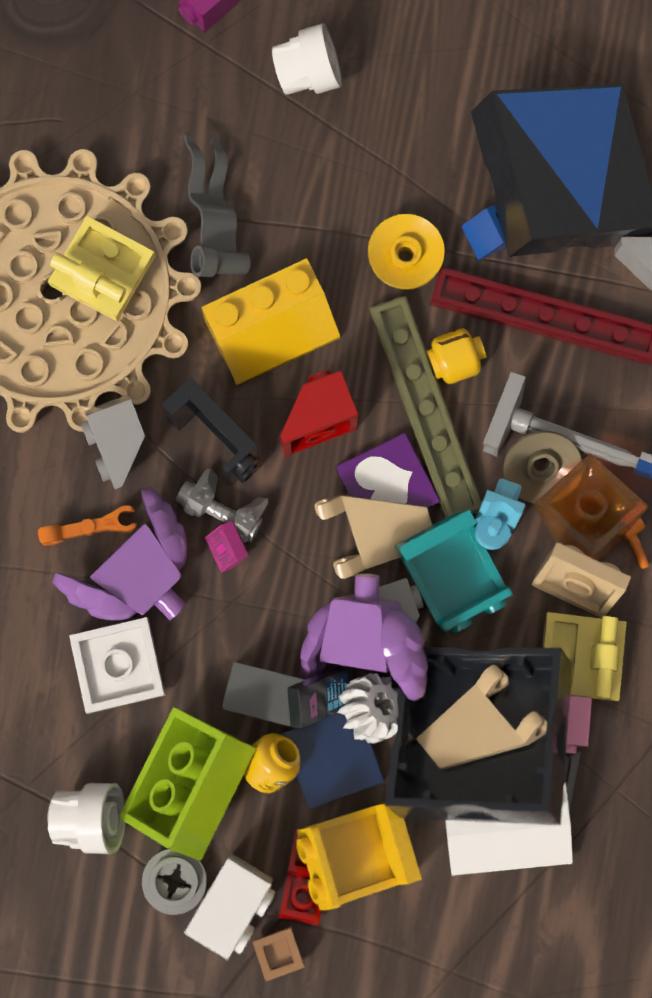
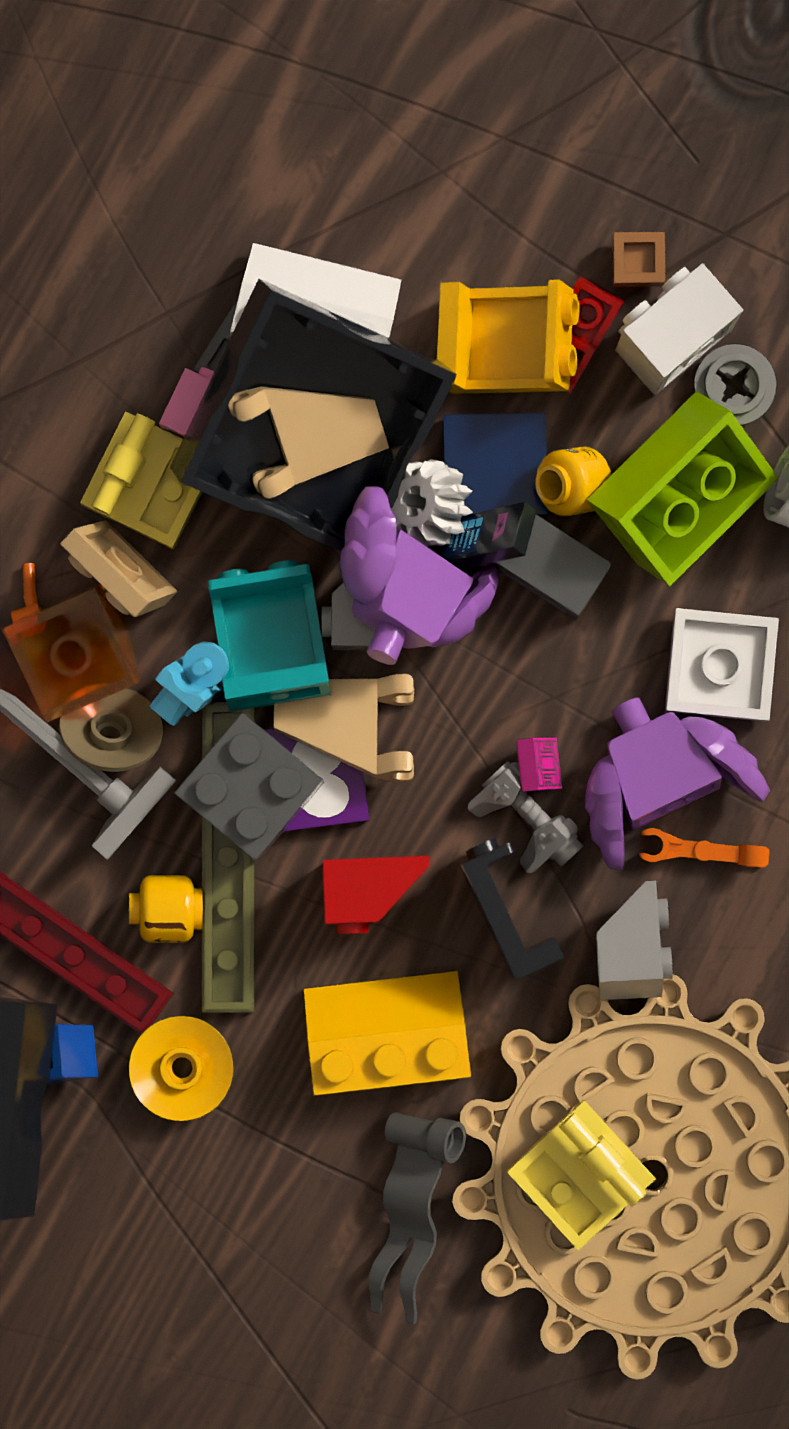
camera: 160 degrees left, 5 degrees up
(307, 62) = (218, 1368): white piece -> none
(428, 455) = (249, 787): none -> dark grey brick

